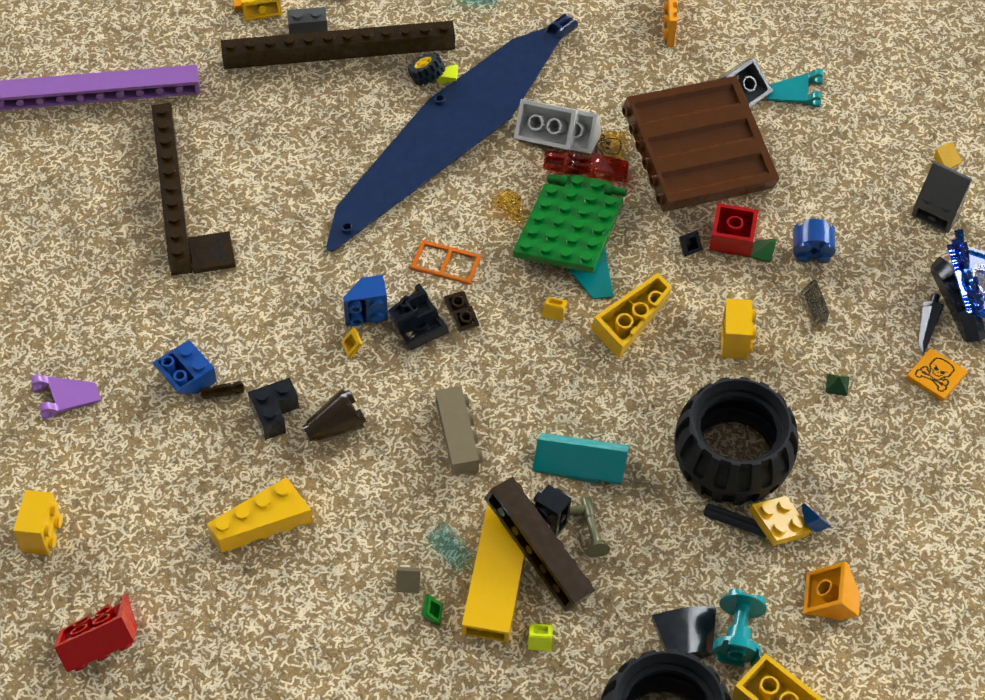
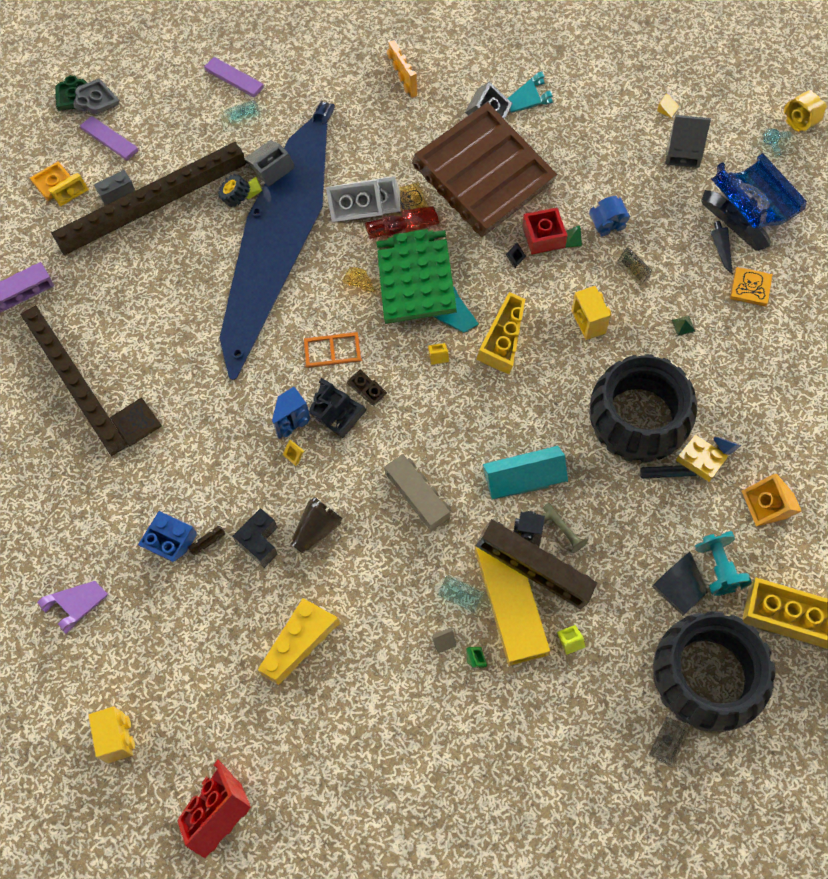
camera: 20 degrees left, 10 degrees up
(478, 55) = (270, 162): none -> dark grey slope

